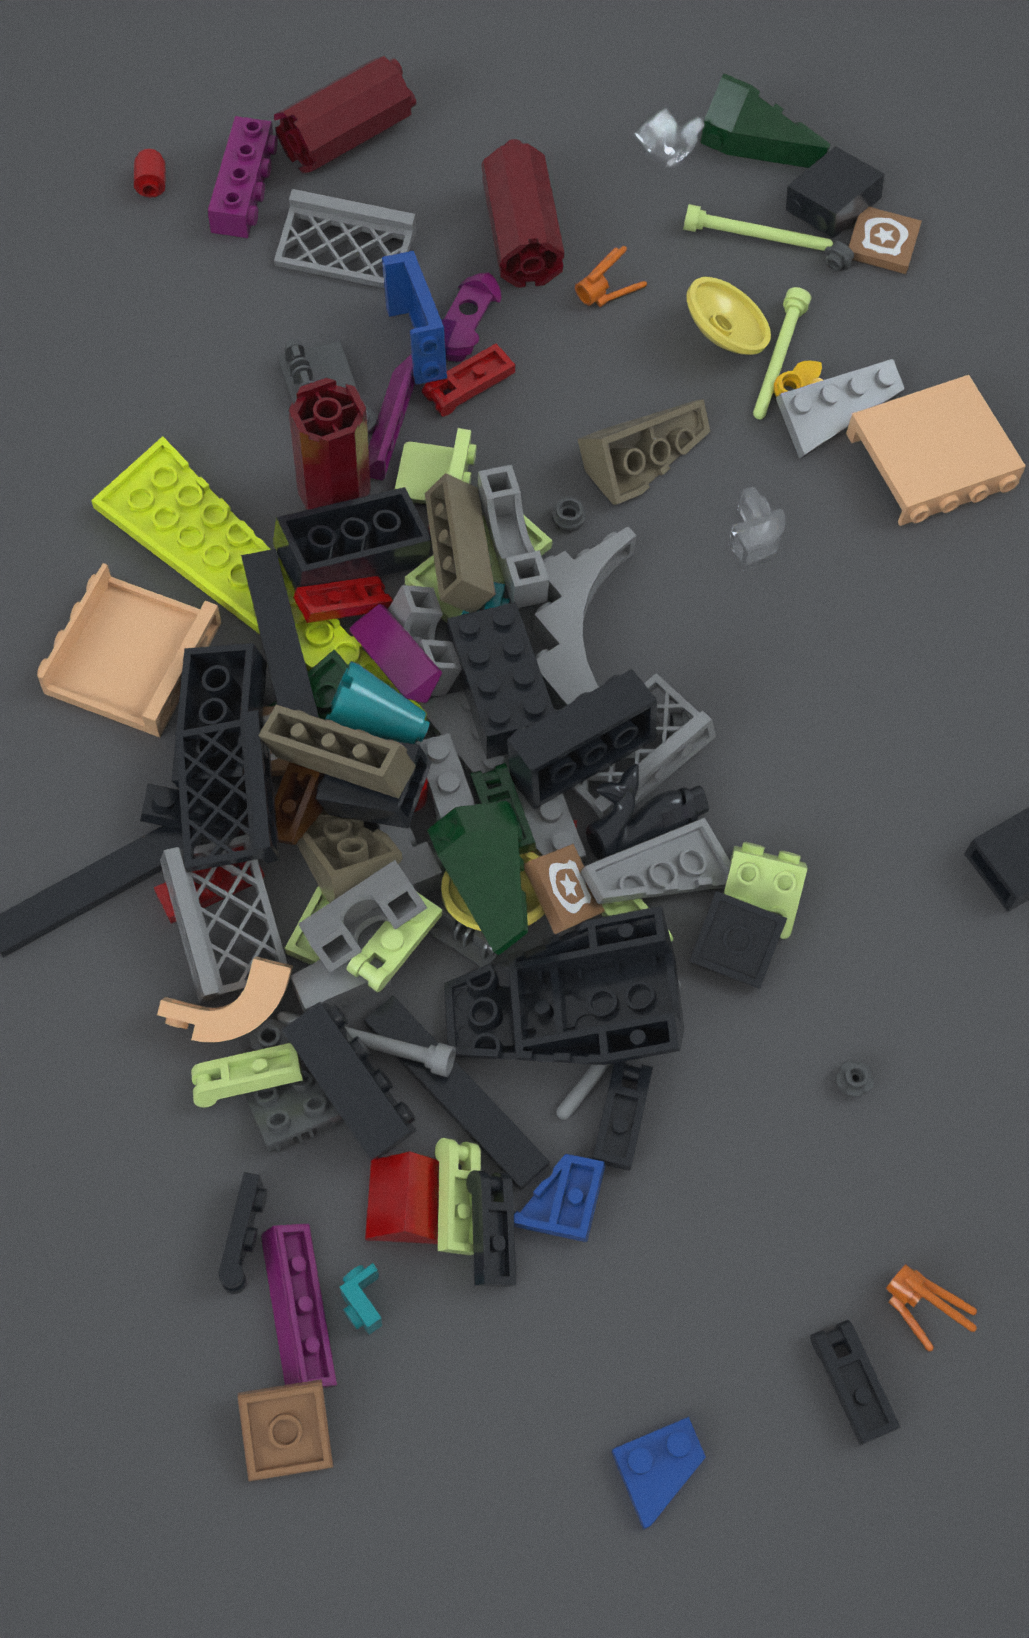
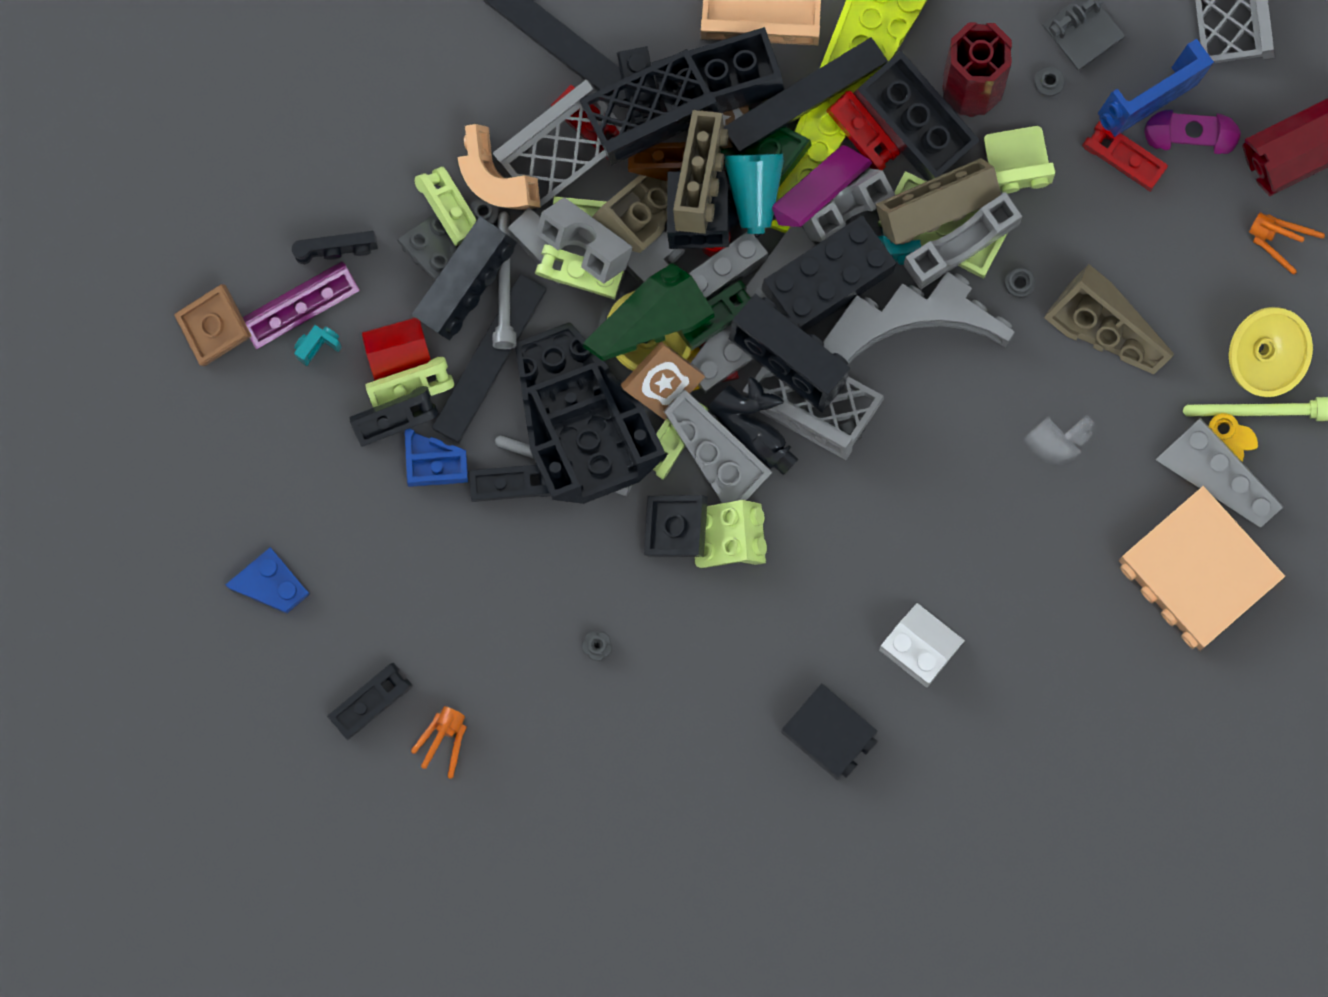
camera: 80 degrees right, 15 degrees up
(390, 419) = (1052, 106): magenta slope -> none
(949, 733) = (921, 645): none -> white slope

